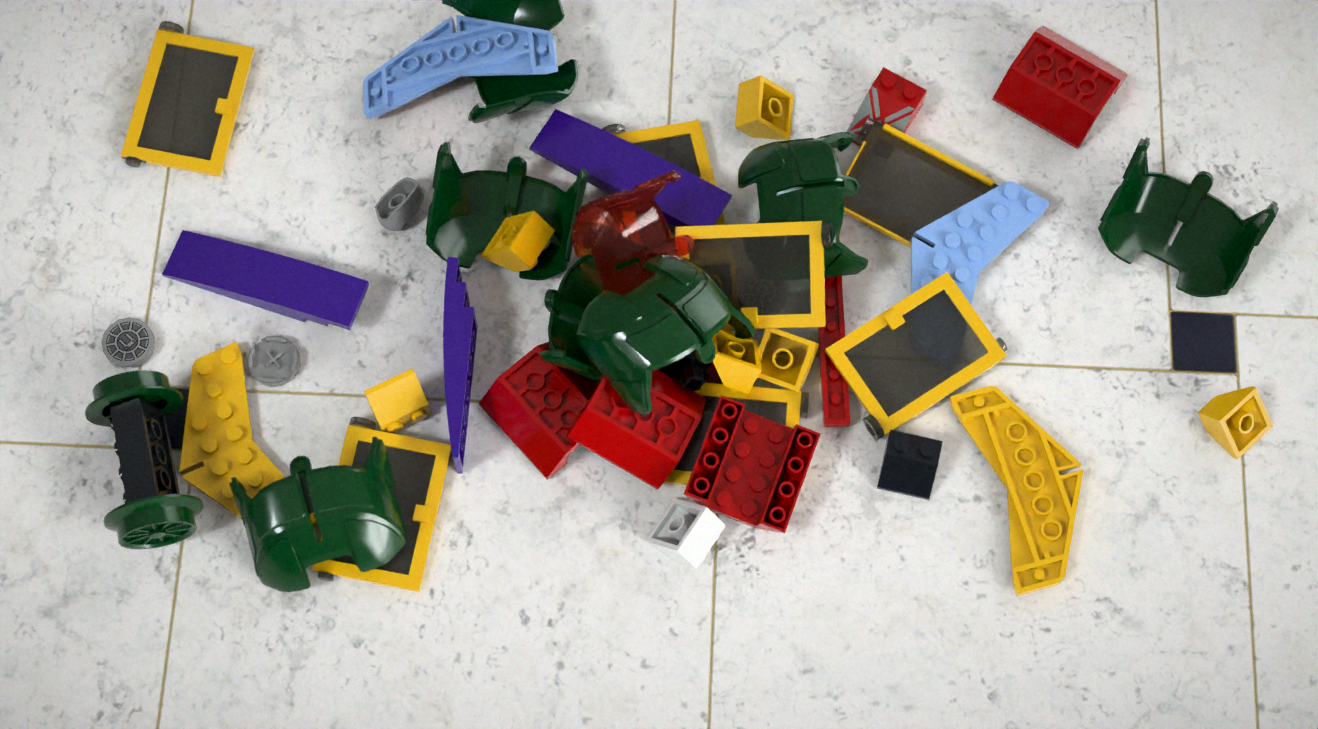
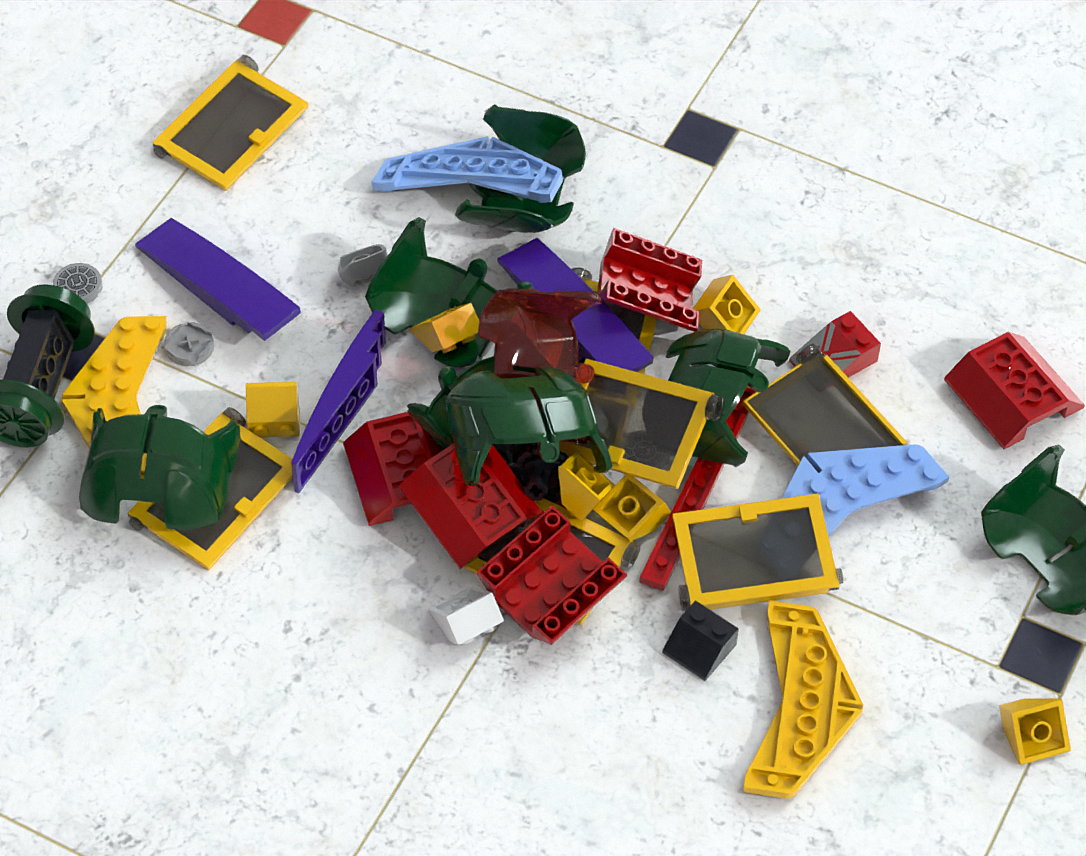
camera: 25 degrees right, 15 degrees down
(686, 114) = (650, 279): none -> red slope

